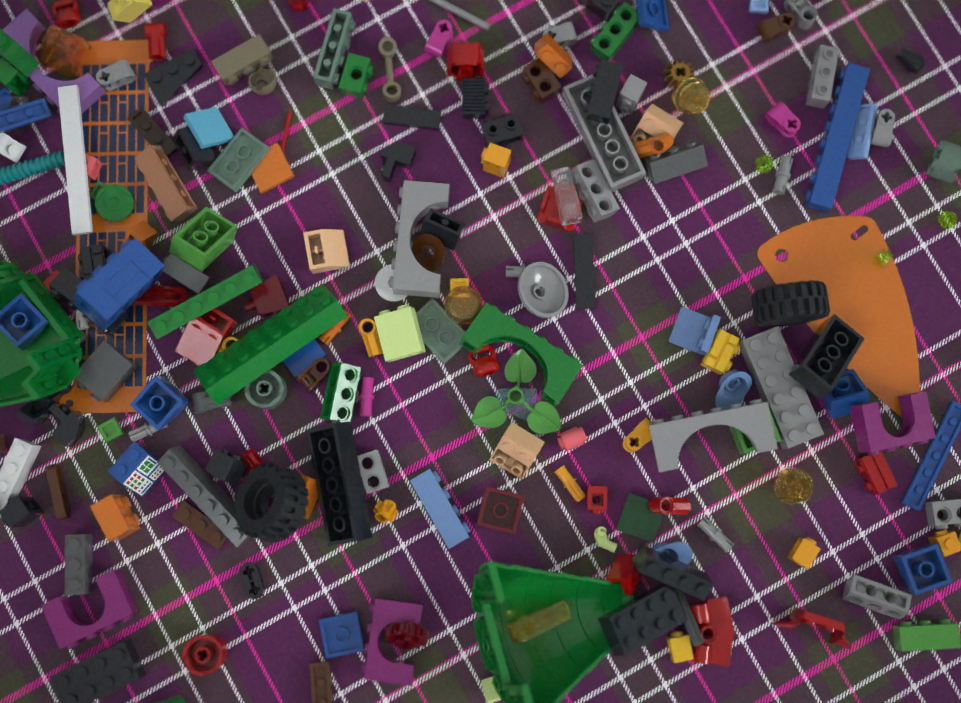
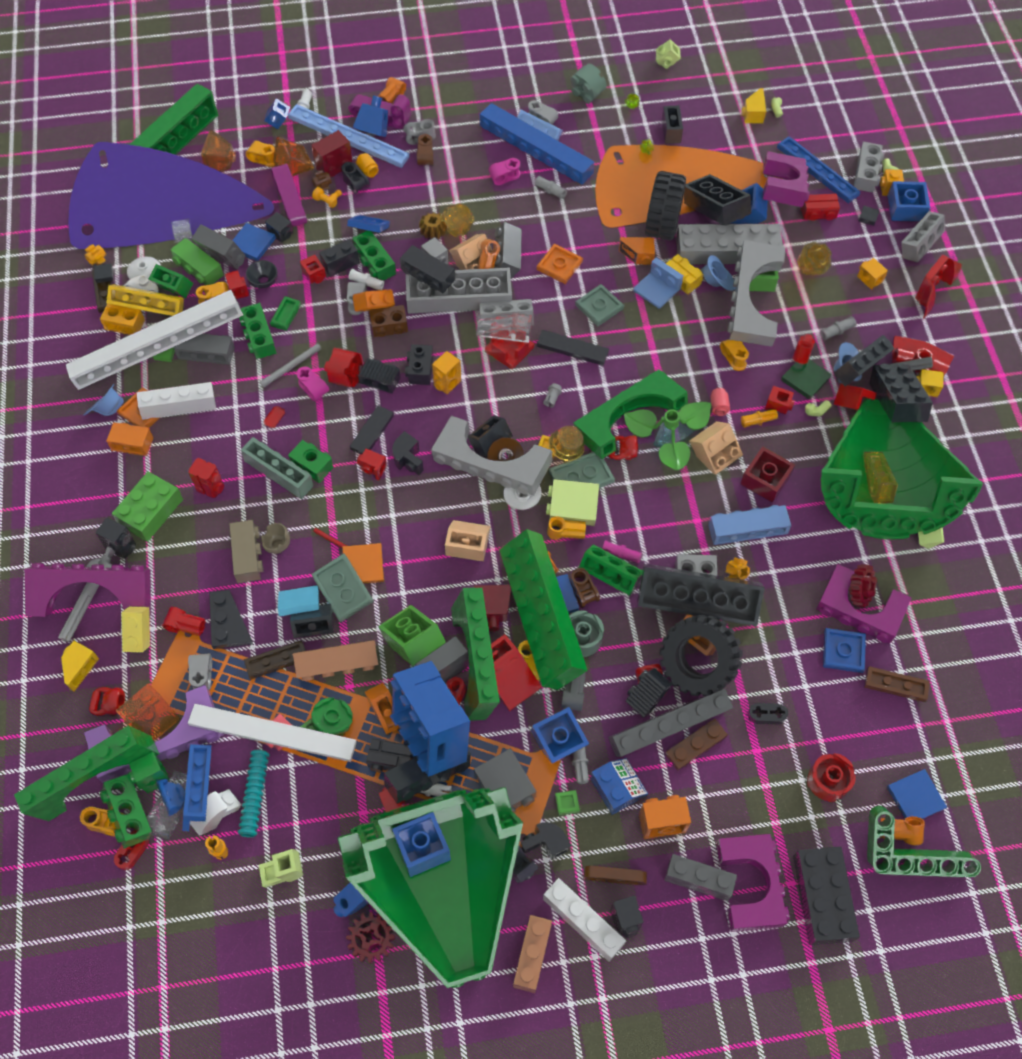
camera: 70 degrees left, 20 degrees down
(374, 132) = (372, 463): none -> red brick
(387, 49) = (340, 436): dark tan piece -> none
(394, 21) = (274, 417): none -> red piece
(550, 289) = (579, 377): light grey dish -> none
(584, 38) = (366, 278): none -> white pin
(648, 279) = (599, 305): none -> sand green tile
(685, 221) = (559, 263): none -> orange tile
(734, 297) = (638, 249): none -> orange slope
(764, 159) = (535, 196): clear neon green plate -> none
(822, 76) = (481, 135): light grey brick -> none
(889, 529) = (868, 215): none -> black tile
(911, 61) = (495, 81): black cone -> none
(925, 274) = (672, 124): none -> black brick
(926, 635) = (962, 218): bright green brick -> none

